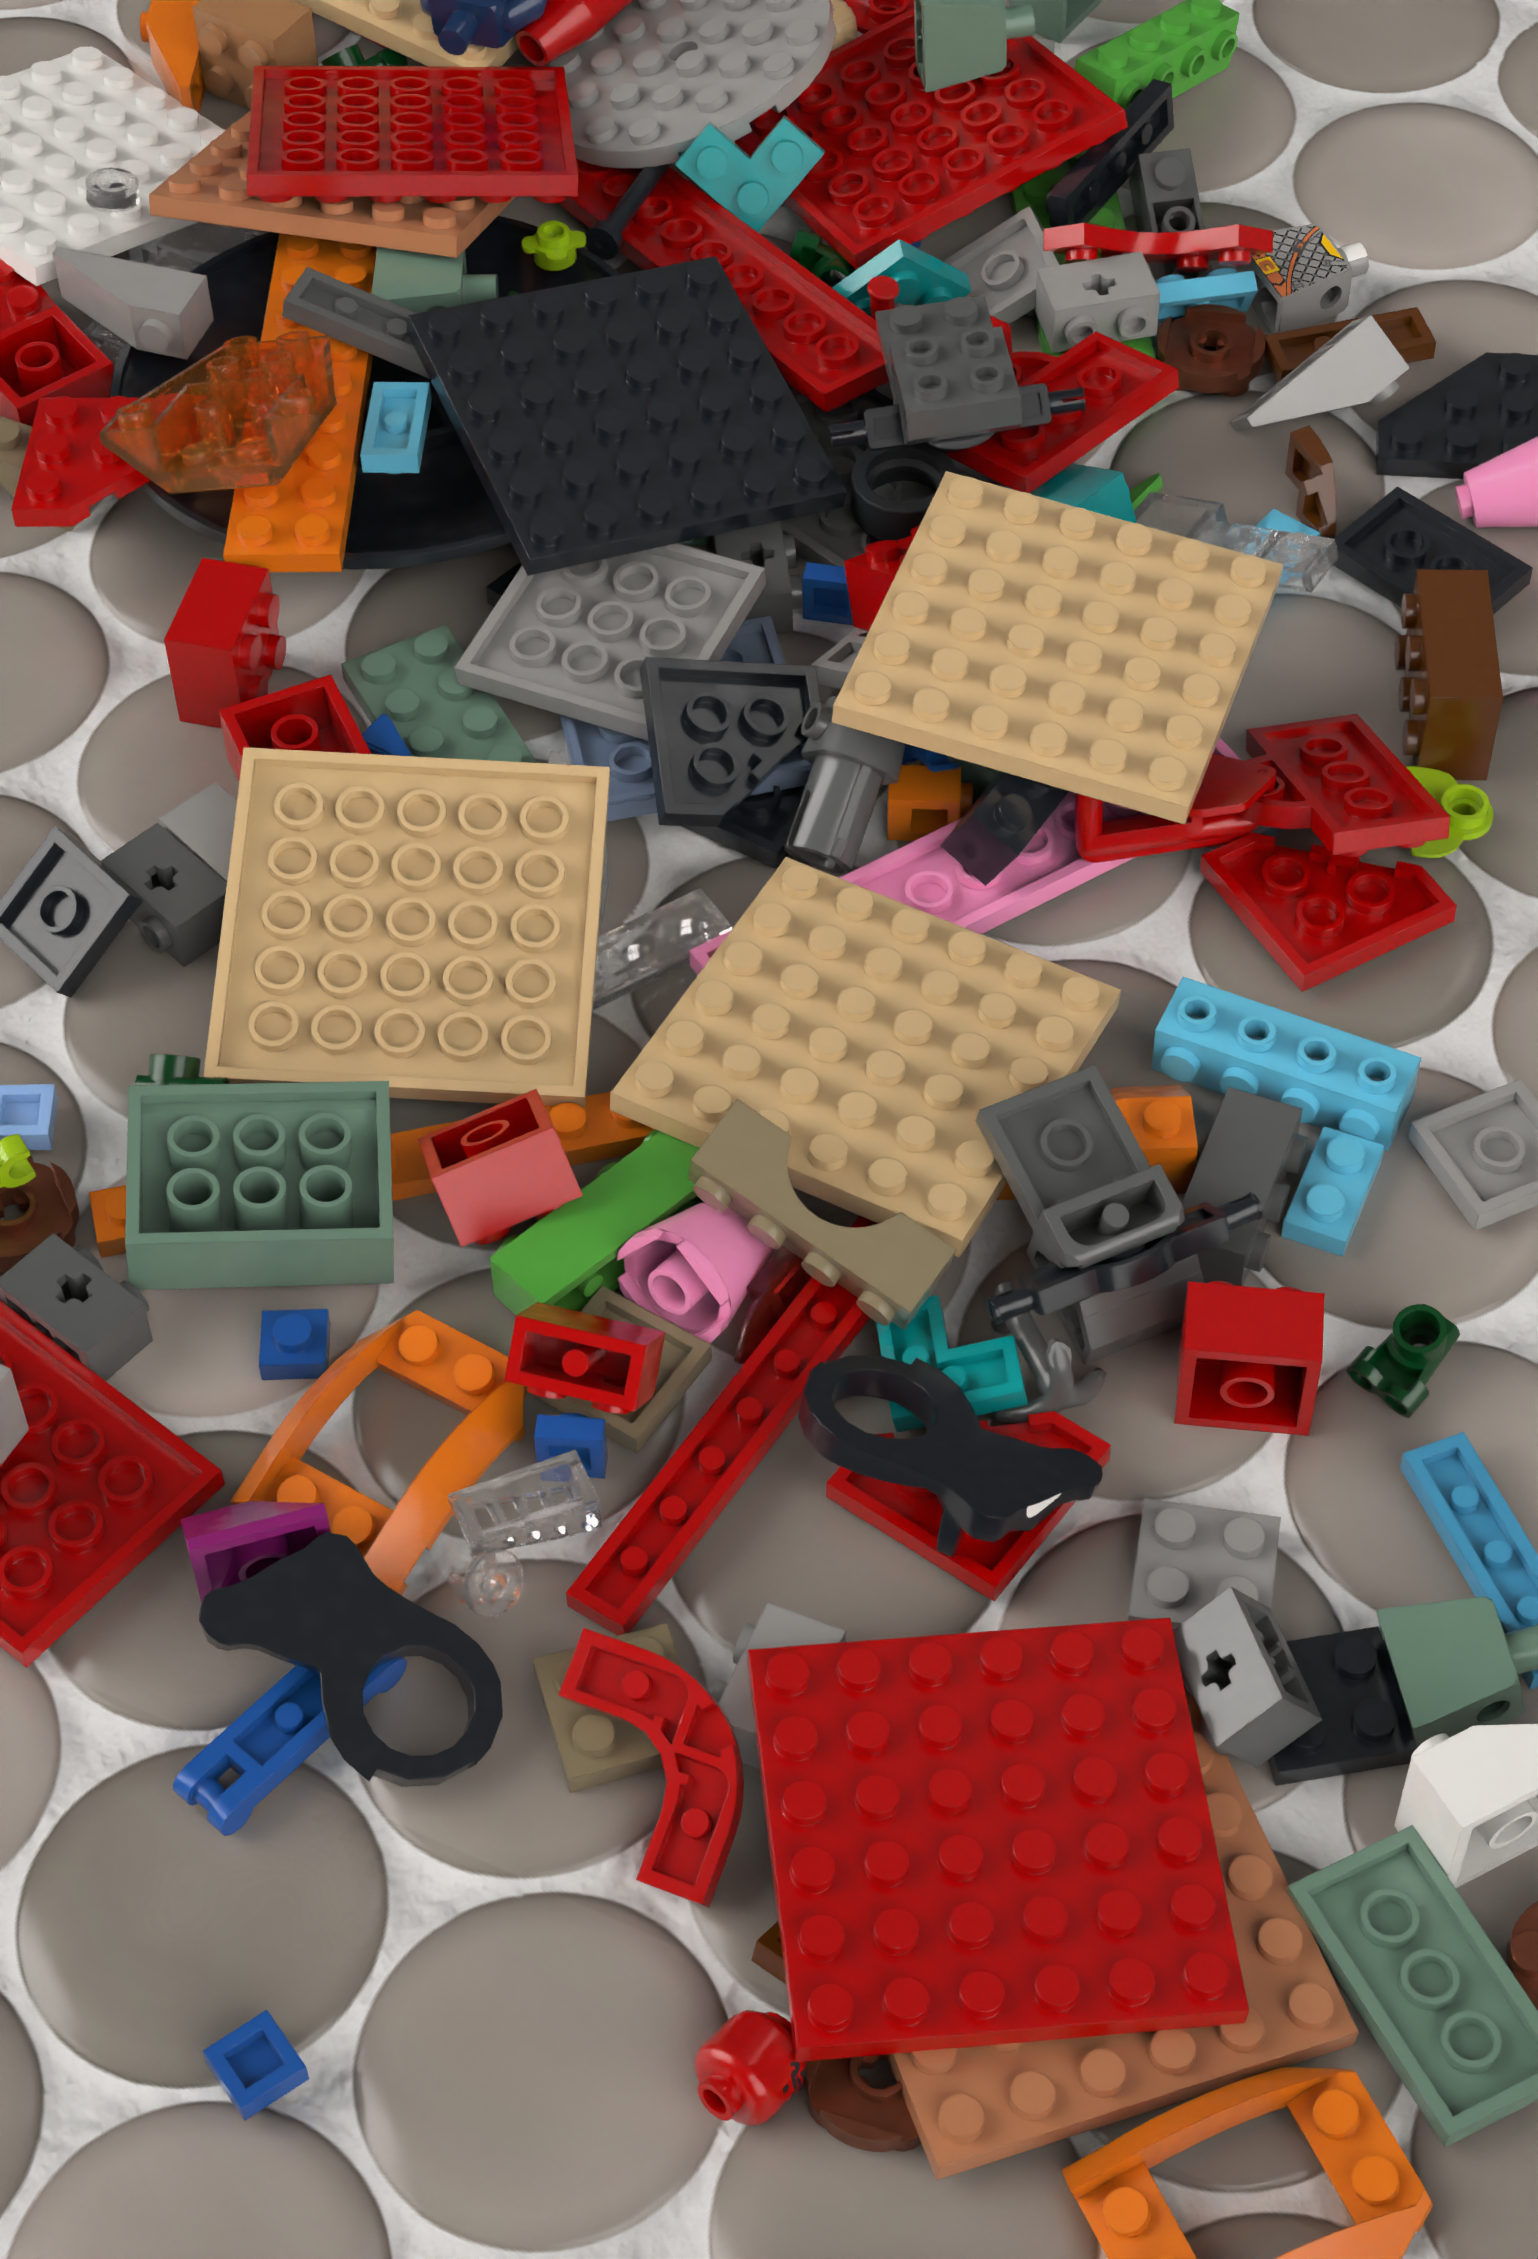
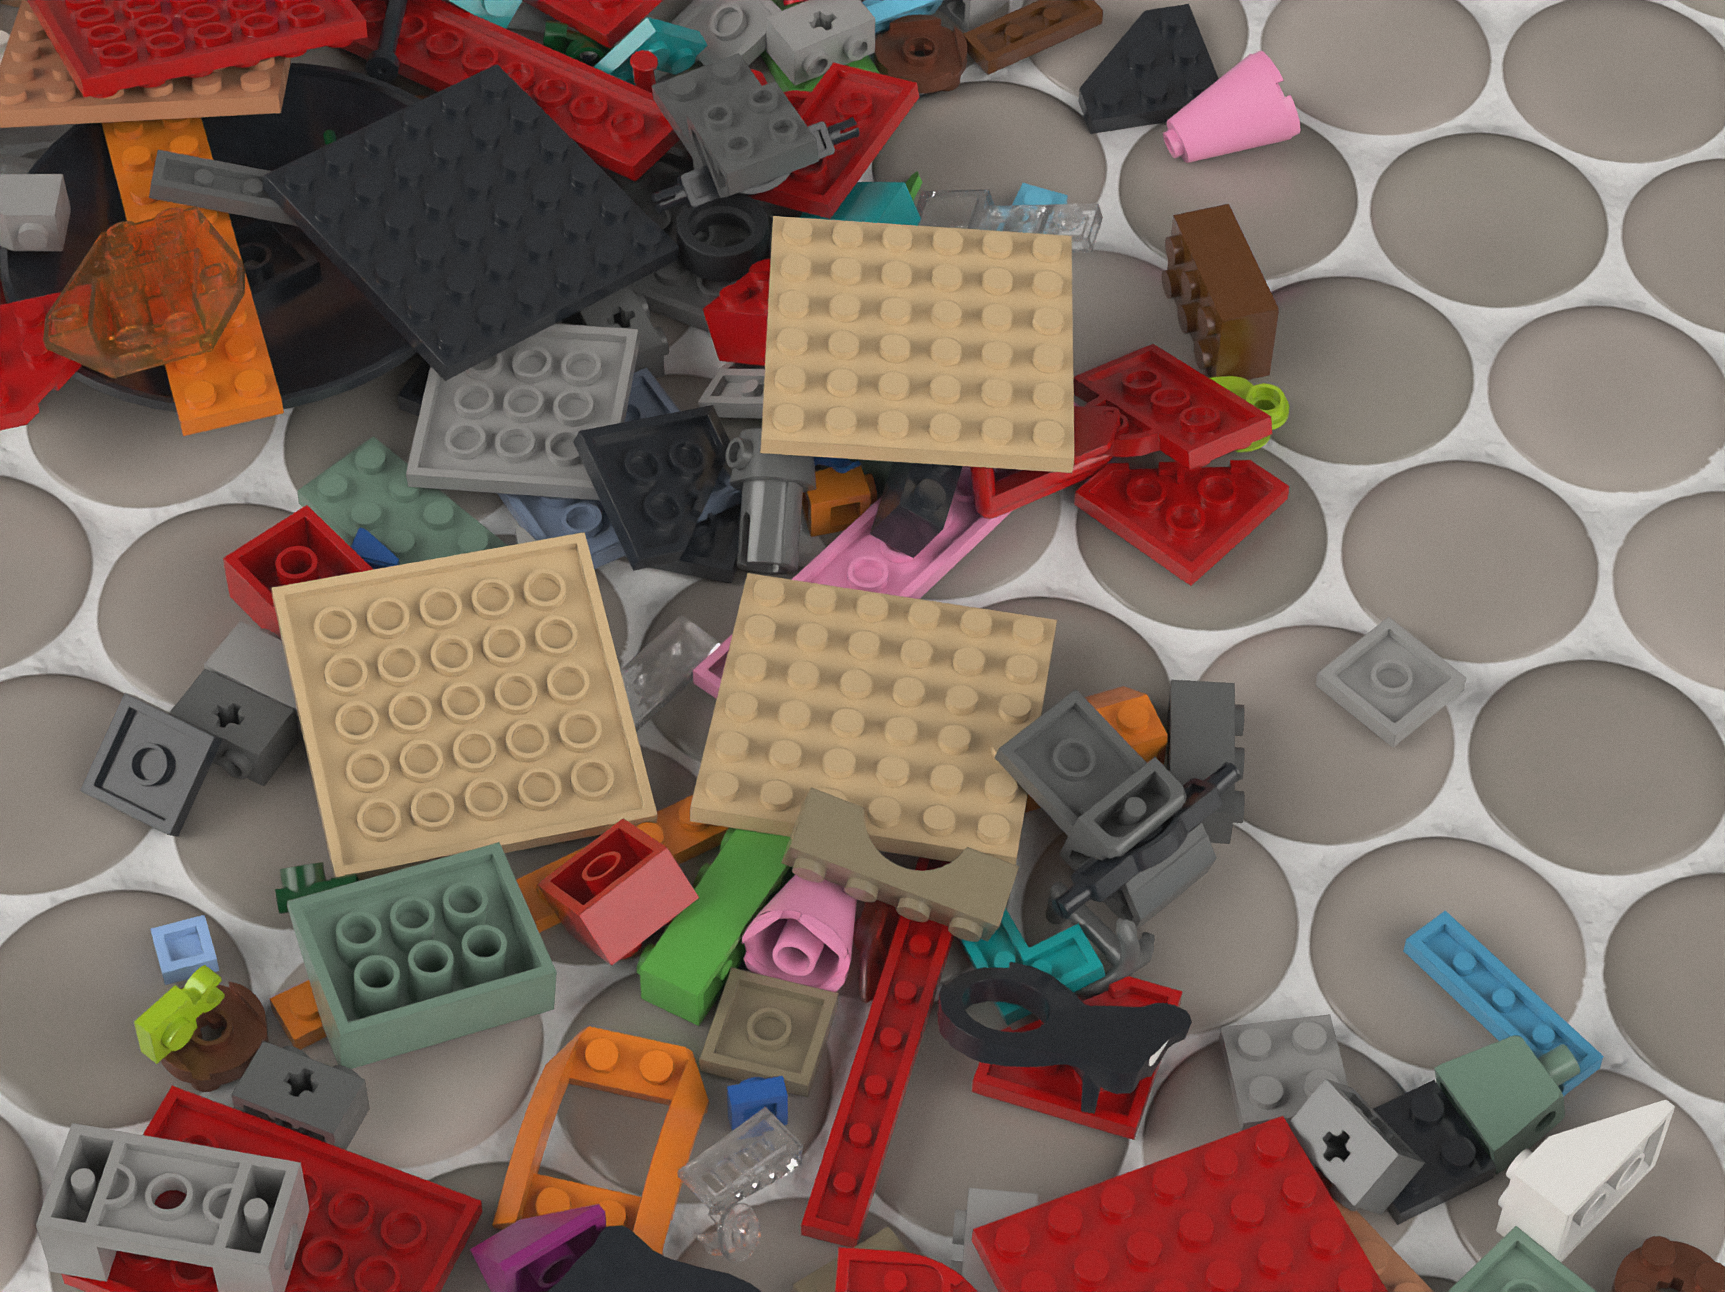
camera: 20 degrees left, 0 degrees up
(223, 640) = (199, 498): red brick -> none
(294, 1344) = (493, 1081): blue plate -> none
(396, 427) = (281, 275): medium azure plate -> none
(429, 280) = (259, 139): sand green torso -> none
(554, 245) = (347, 80): lime plate -> none
(584, 1358) = (752, 1030): red brick -> none
(826, 594) = (689, 337): blue plate -> none
(1249, 1358) = (1267, 894): red brick -> none
(1274, 1054) = (1191, 643): medium azure brick -> none
(1313, 474) = (1046, 146): reddish brown slope -> none
(1332, 1191) = (1273, 743): medium azure plate -> none
(1345, 372) = (1039, 54): light grey slope -> none
(1399, 1369) = (1378, 873): dark green plate -> none
(1409, 535) = (1144, 192): black plate -> none

